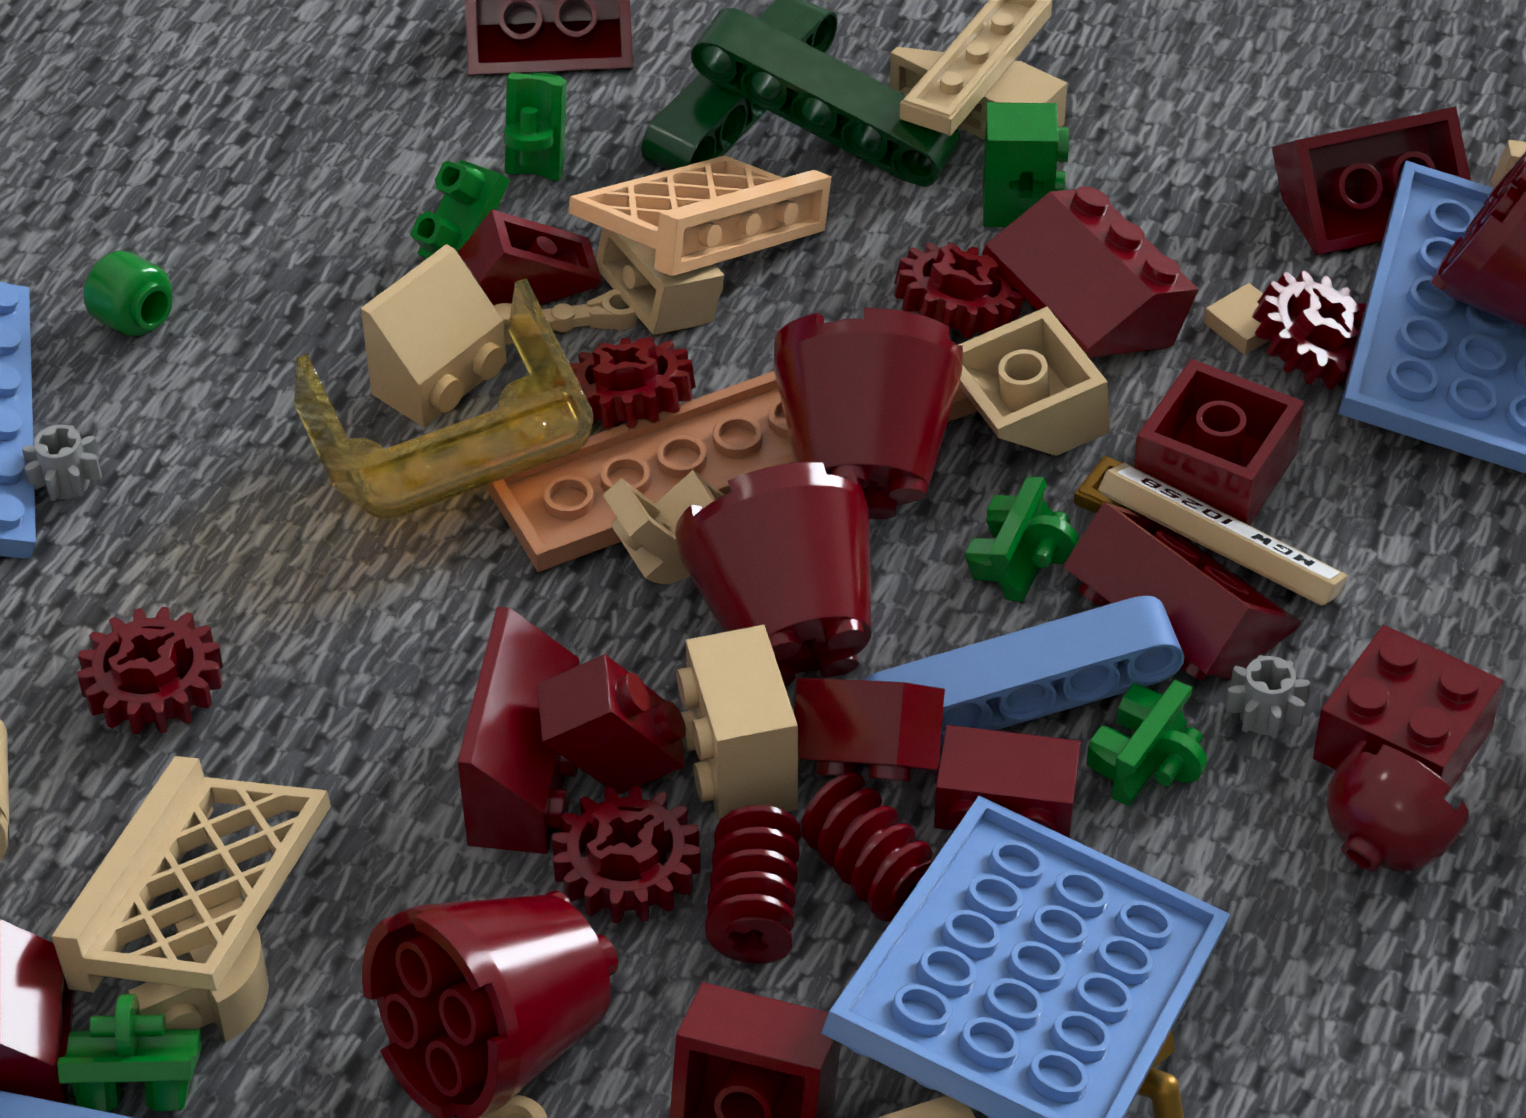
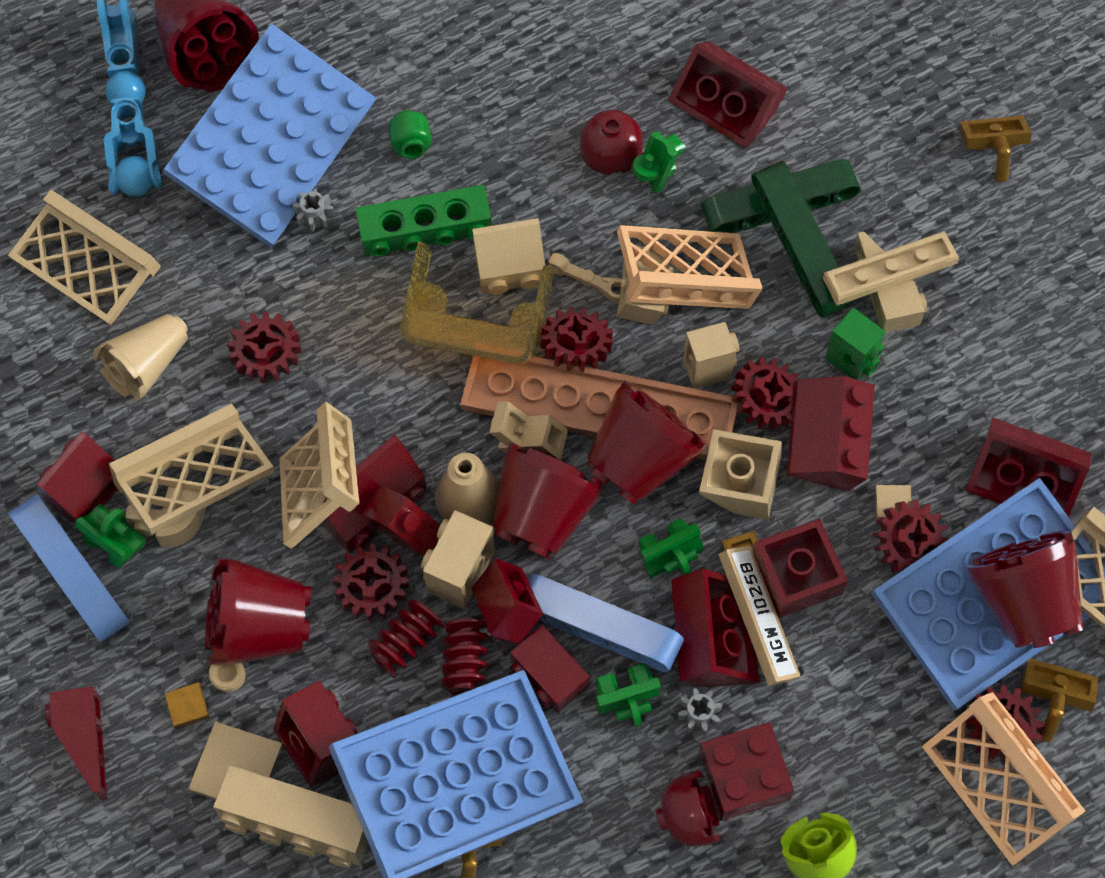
camera: 40 degrees right, 20 degrees up
(249, 381) = (409, 212): none -> green brick
(430, 134) = (611, 142): none -> dark red cylinder
(433, 688) = (321, 470): none -> tan fence
(467, 200) = (584, 193): green hips -> none
(516, 249) = (588, 239): dark red slope -> none
(653, 617) = (467, 489): none -> tan cone
(840, 269) = (710, 354): none -> tan brick

